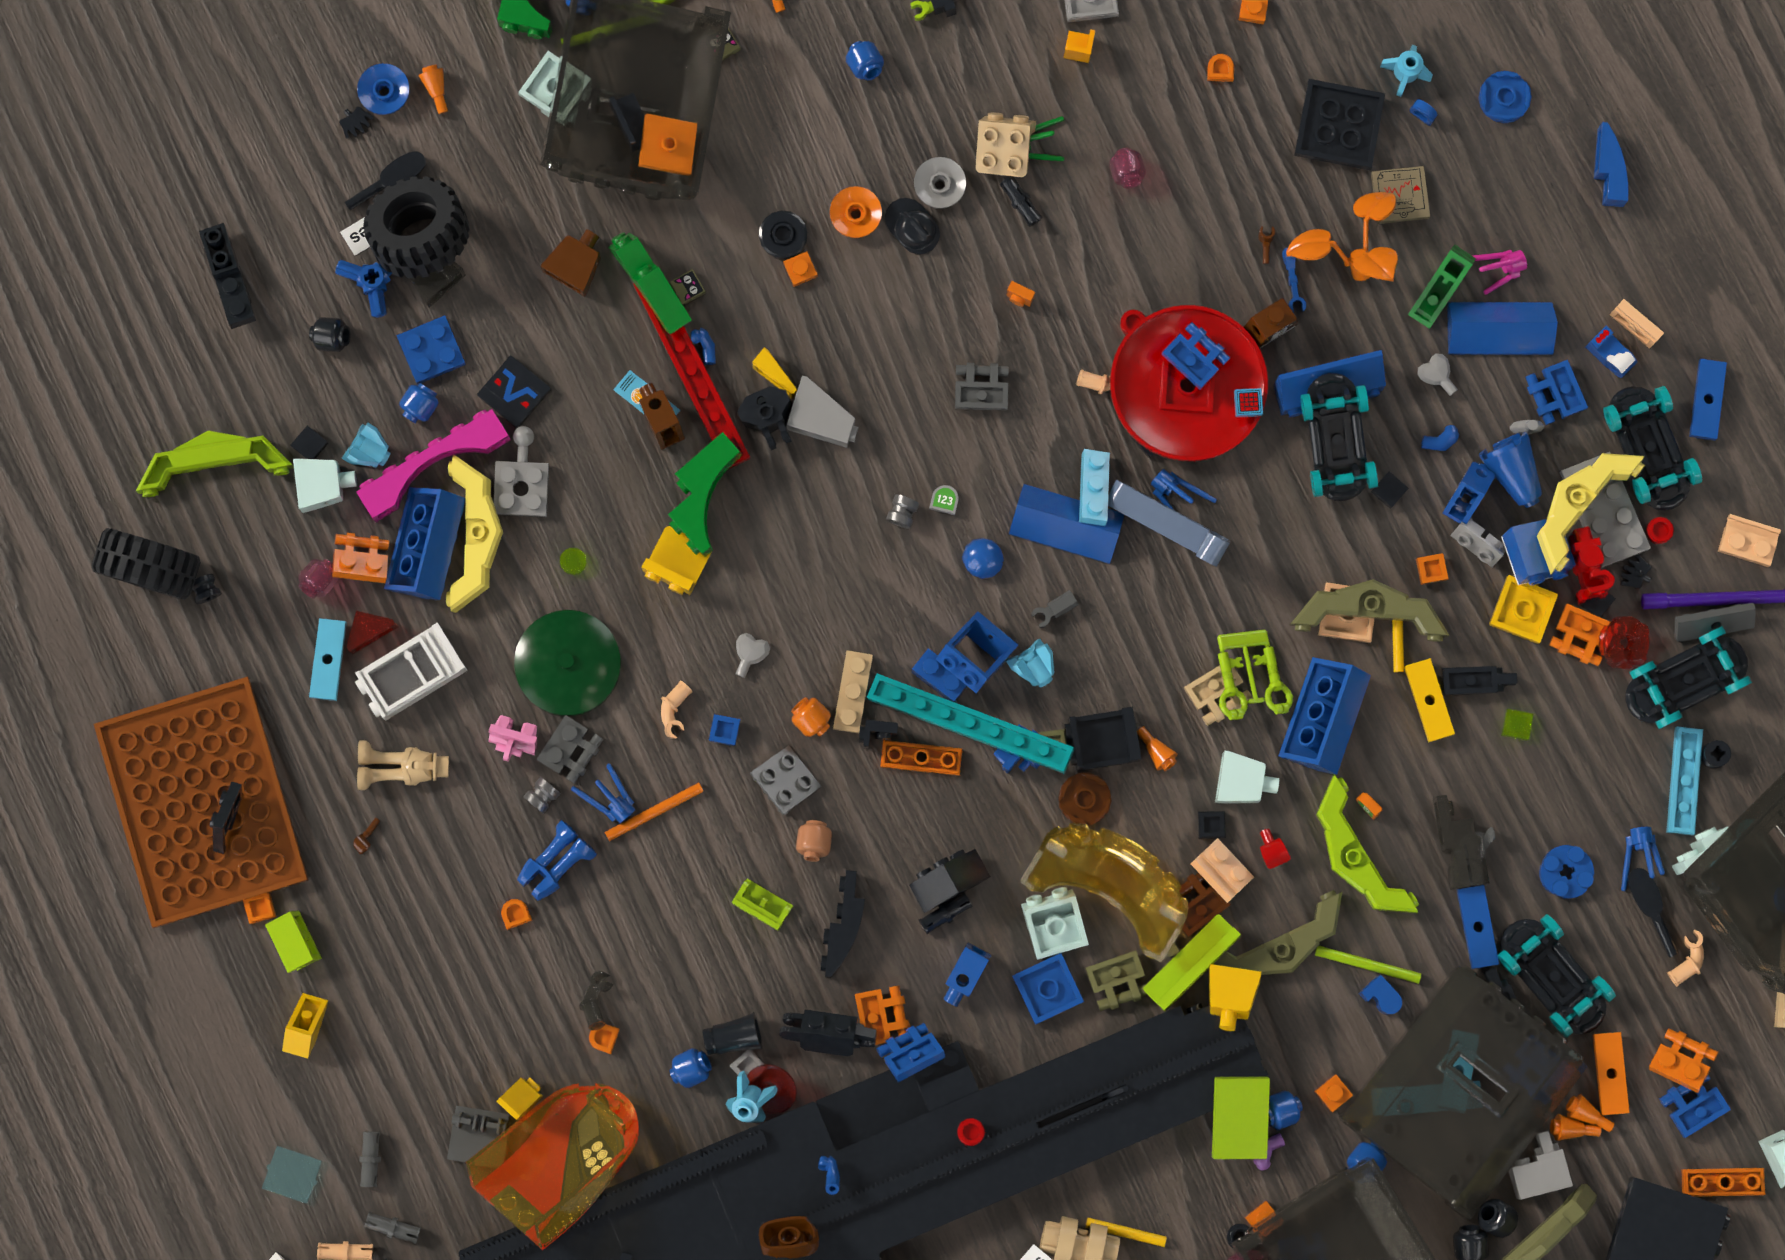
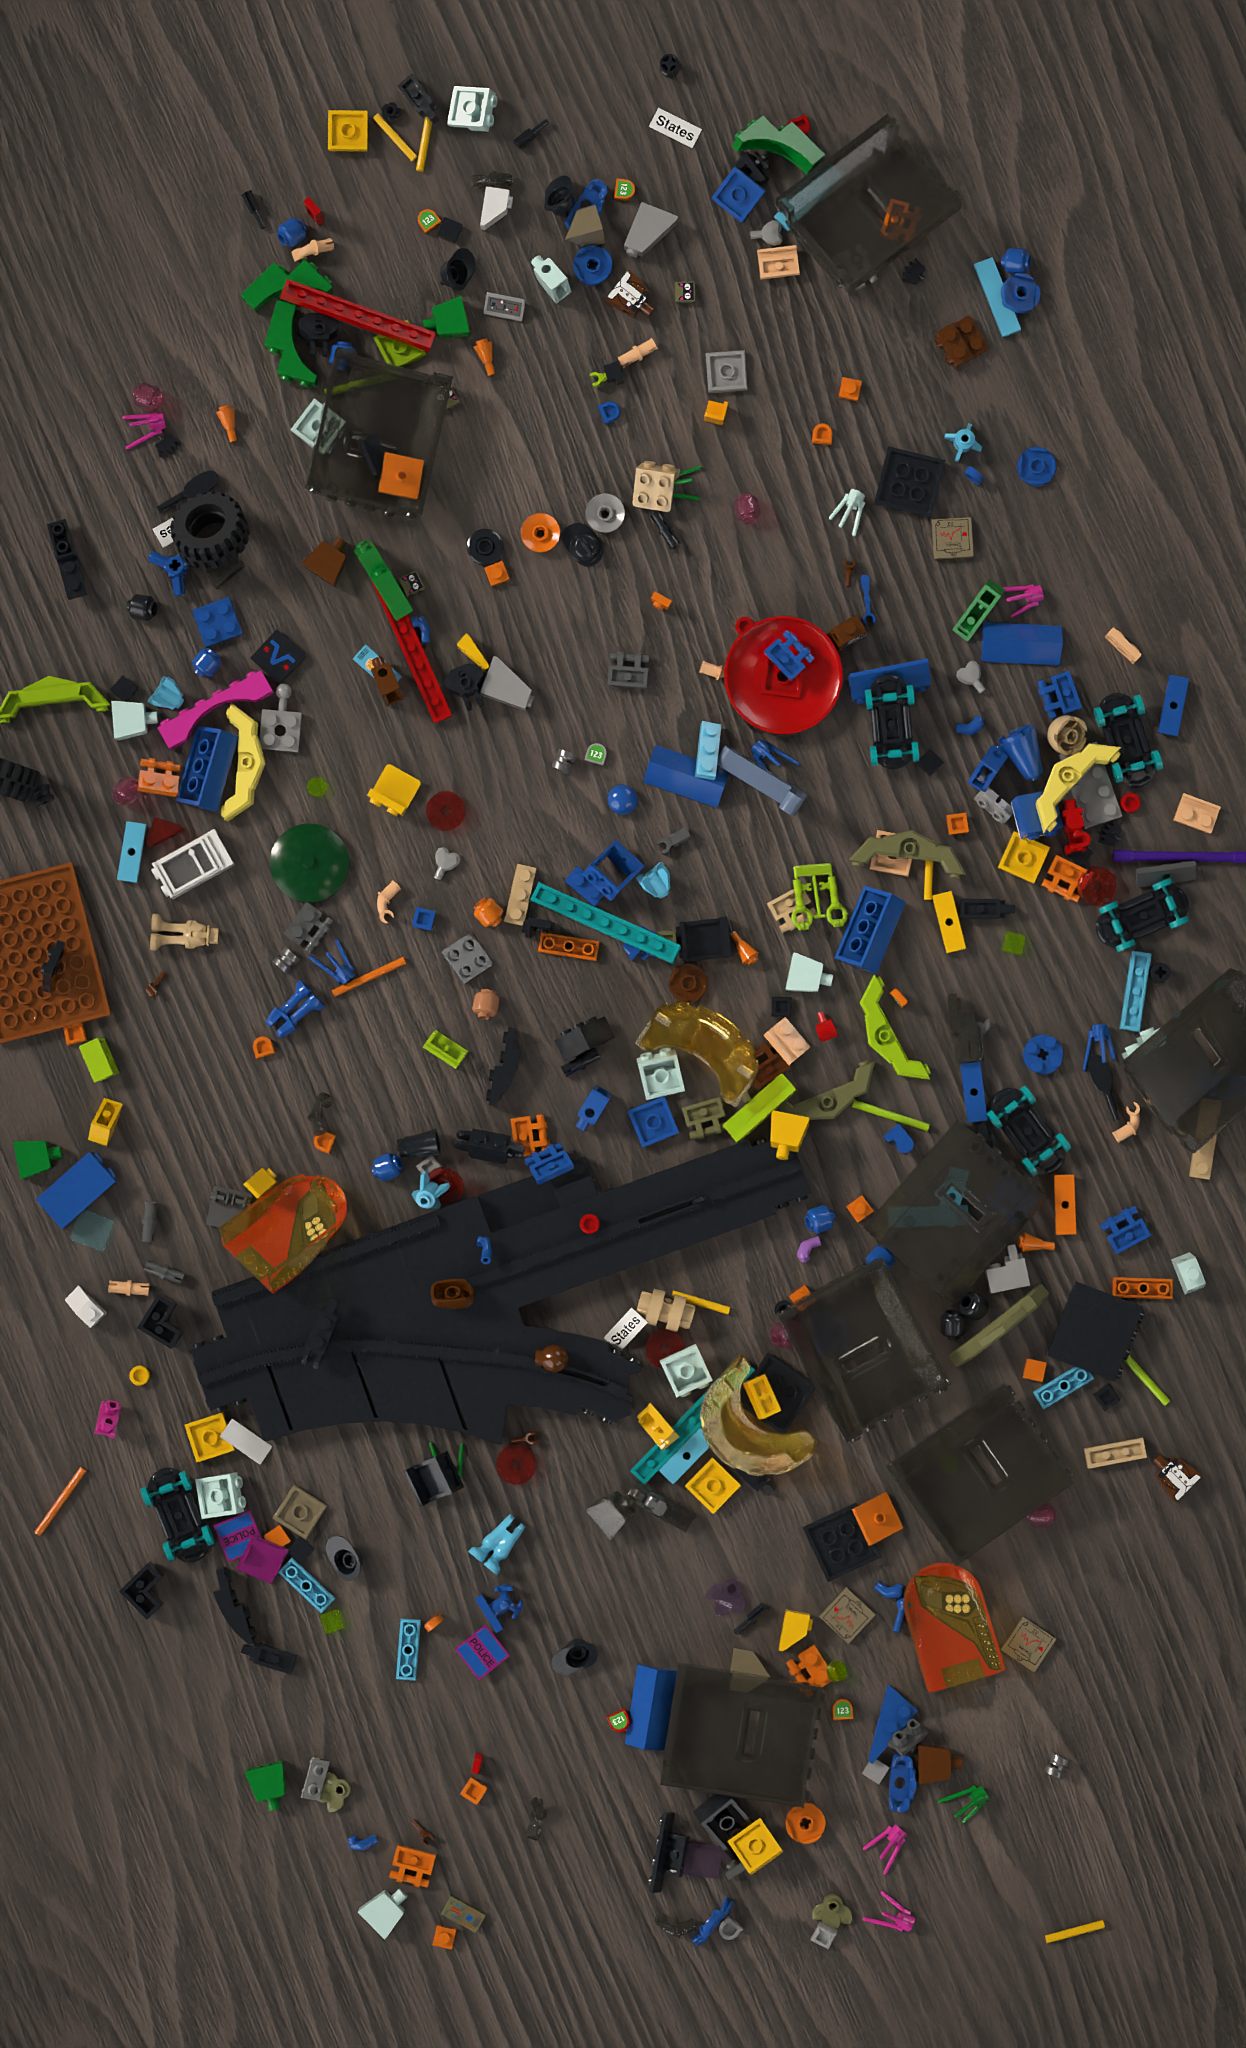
camera: 10 degrees right, 5 degrees up
(210, 1078) = (35, 1157): none -> green torso
(269, 1120) = (77, 1189): none -> blue panel
(327, 59) = (147, 397): none -> clear pink head
(338, 90) = (155, 422): none -> dark pink plant
(380, 77) = (185, 412): blue dish -> none
(512, 741) = (264, 919): bright pink hips -> none
(700, 479) = (414, 730): green arch -> none
(736, 574) = (452, 820): none -> clear red plate
(864, 60) = (553, 416): blue head -> none
(938, 52) = (609, 411): none -> blue tile
(1240, 1117) = (788, 1223): lime tile -> none
(1248, 402) = (826, 692): tile -> none
(1267, 152) = (854, 500): none -> light aqua plant
(1377, 263) = (922, 592): orange plant -> none
(1530, 426) = (1035, 719): light grey rock -> none
(1571, 443) = (1067, 734): none -> tan cylinder
(1582, 1110) = (1043, 1231): orange cone -> none
(1610, 167) = (1112, 525): blue slope -> none
(1611, 352) = (1103, 666): blue leg -> none
(1679, 1067) = (1116, 1203): orange plate -> none

